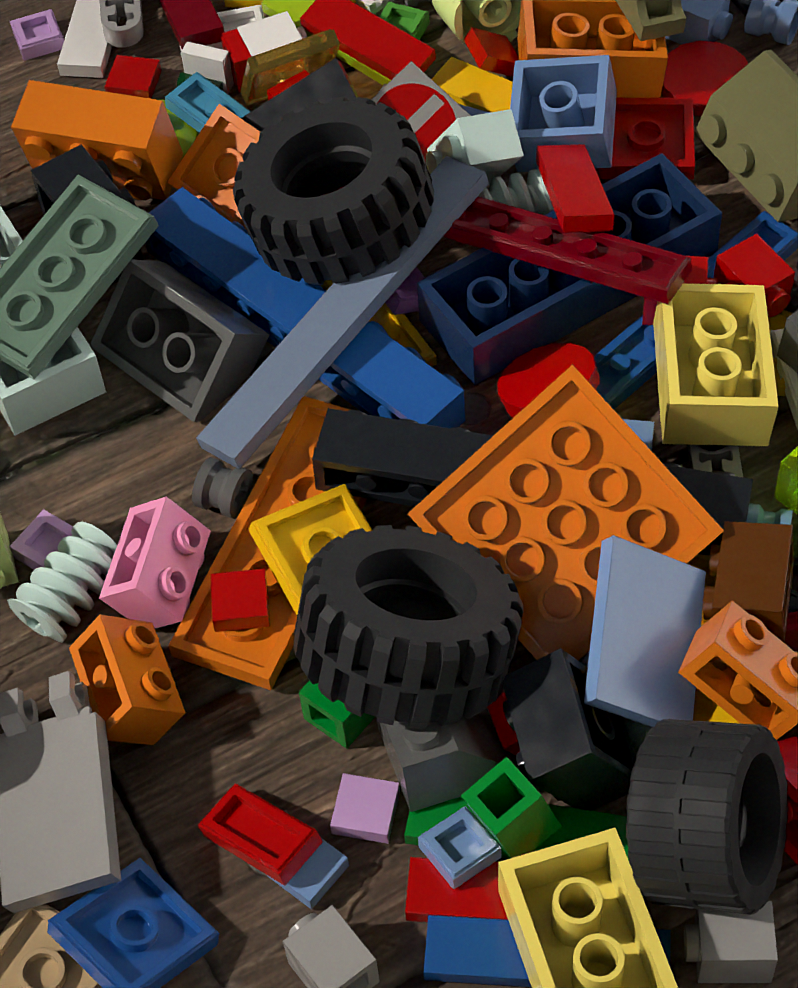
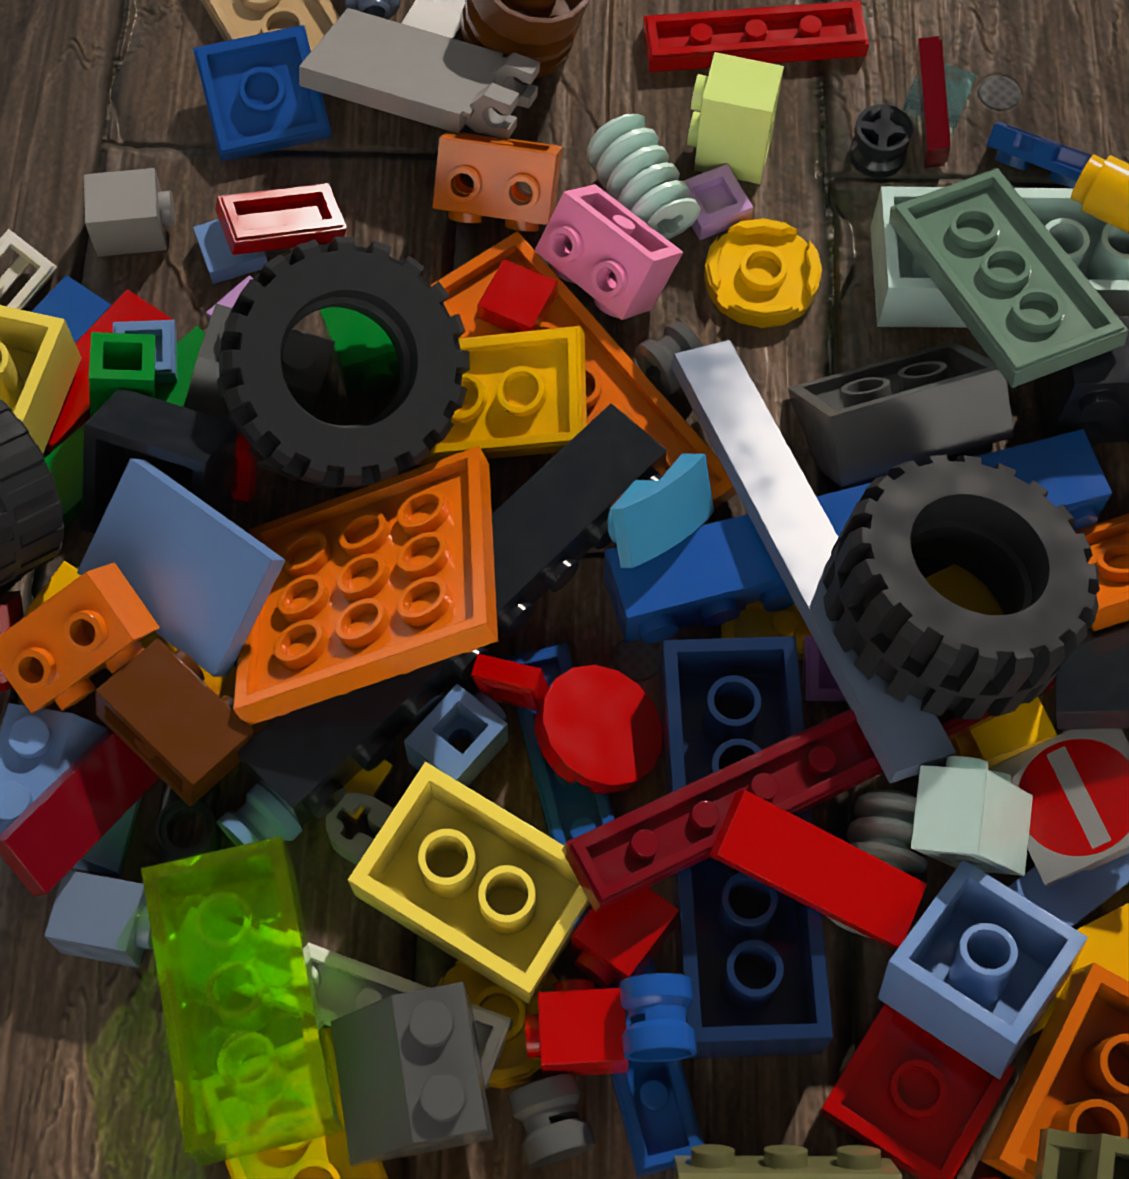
camera: 115 degrees right, 10 degrees up
(98, 482) = (762, 273): none -> yellow tile
(376, 392) = (662, 512): none -> dark azure slope
(727, 220) = (658, 1017): none -> blue wheel

